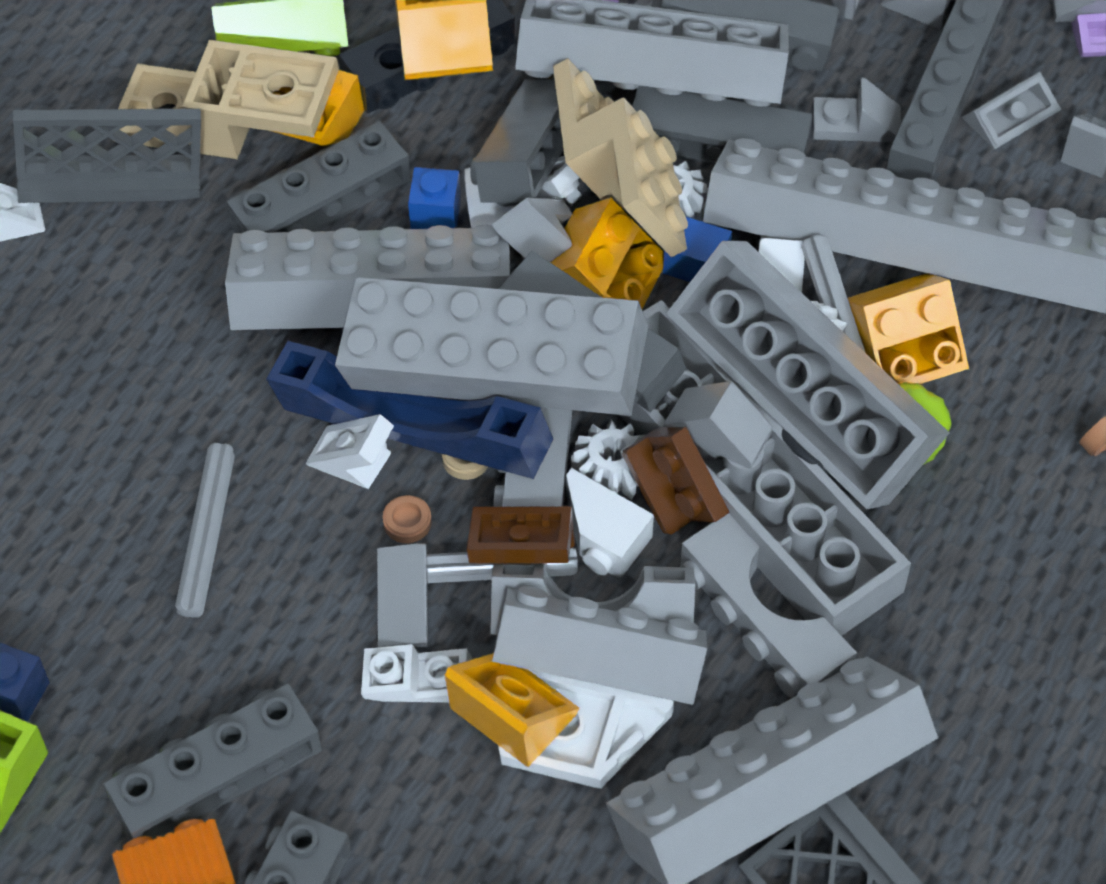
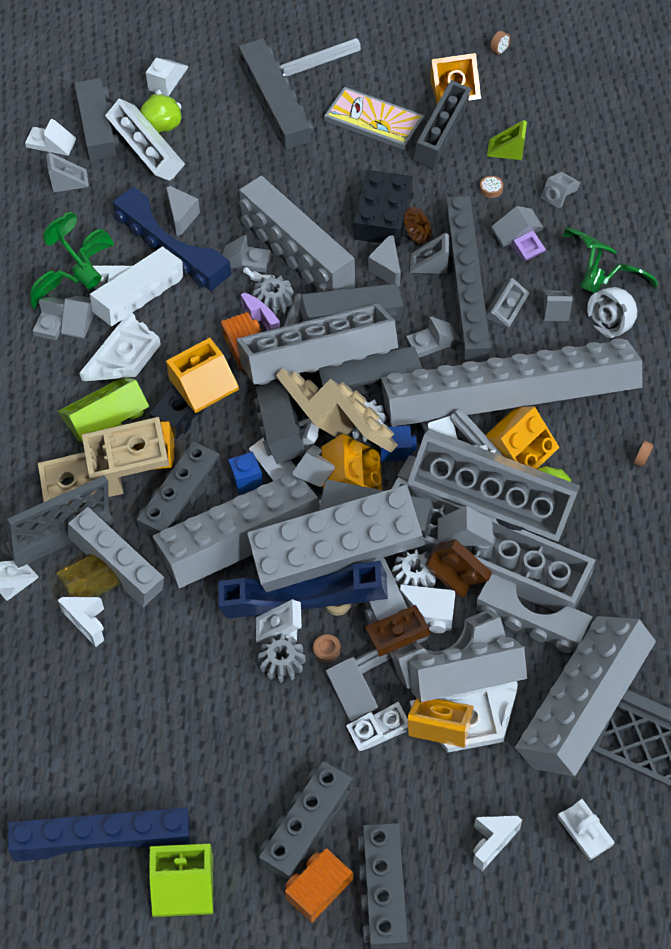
camera: 25 degrees left, 0 degrees up
(71, 307) = (82, 614): none -> white slope
(114, 261) = (88, 578): none -> clear yellow bracket
(165, 244) = (133, 571): none -> light grey arch
(205, 530) = (225, 701): light grey axle -> none
(341, 510) = (283, 667): none -> light grey gear

